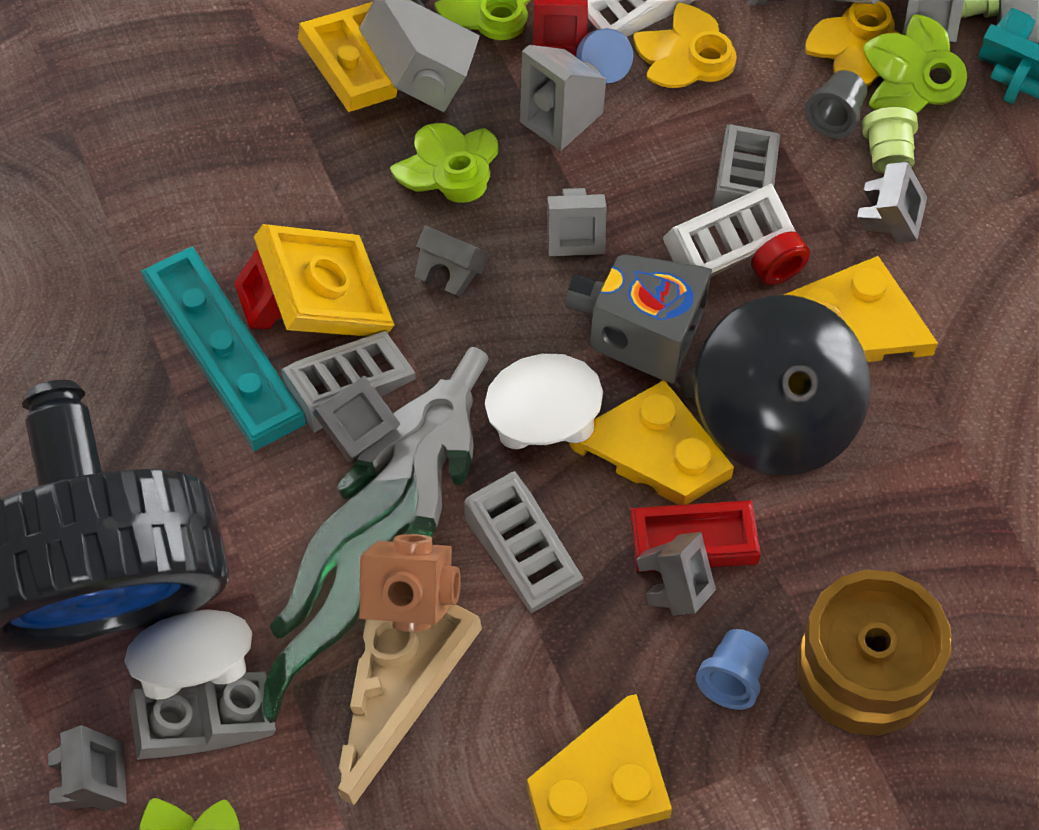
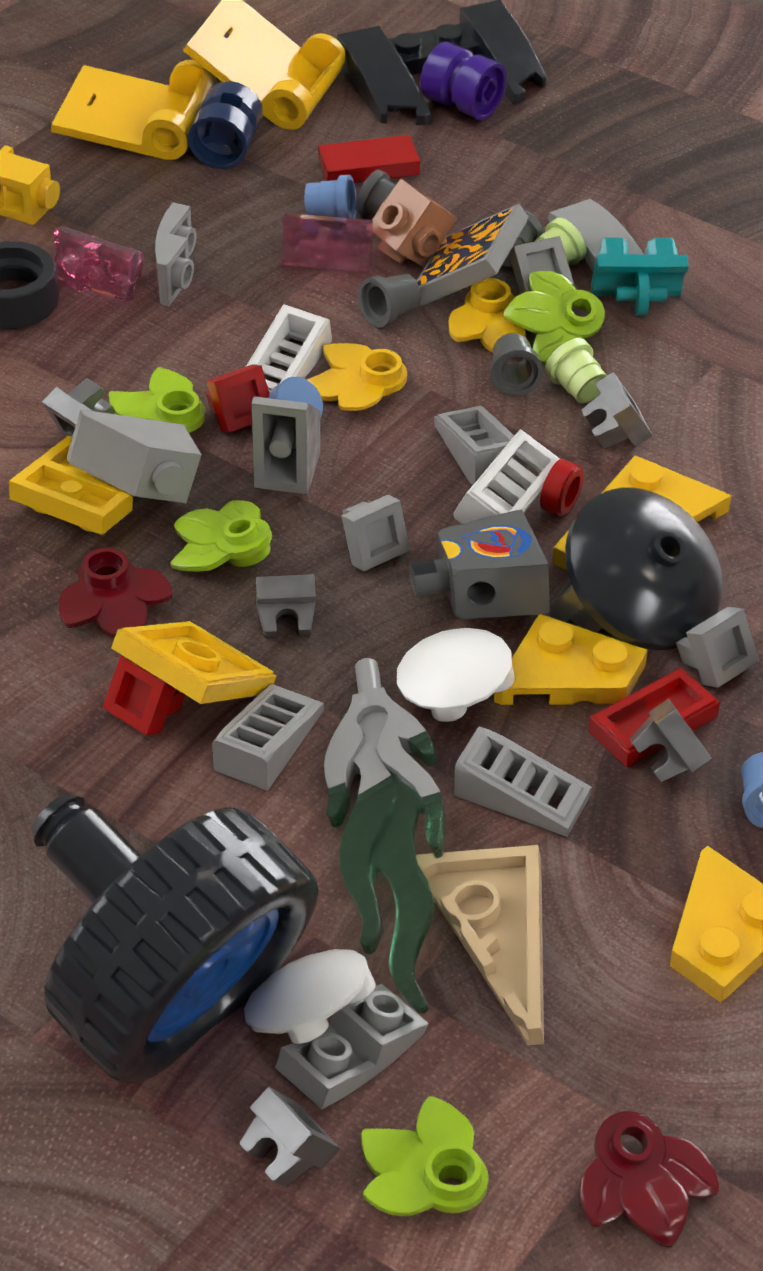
camera: 30 degrees left, 15 degrees down
(223, 348) = (130, 759): teal tile -> none
(317, 182) = (112, 593): none -> dark red plate
(356, 418) = (309, 752): flat silver tile -> none
(408, 582) = (447, 836): nougat brick -> none
(801, 500) = (719, 647): none -> light grey tile

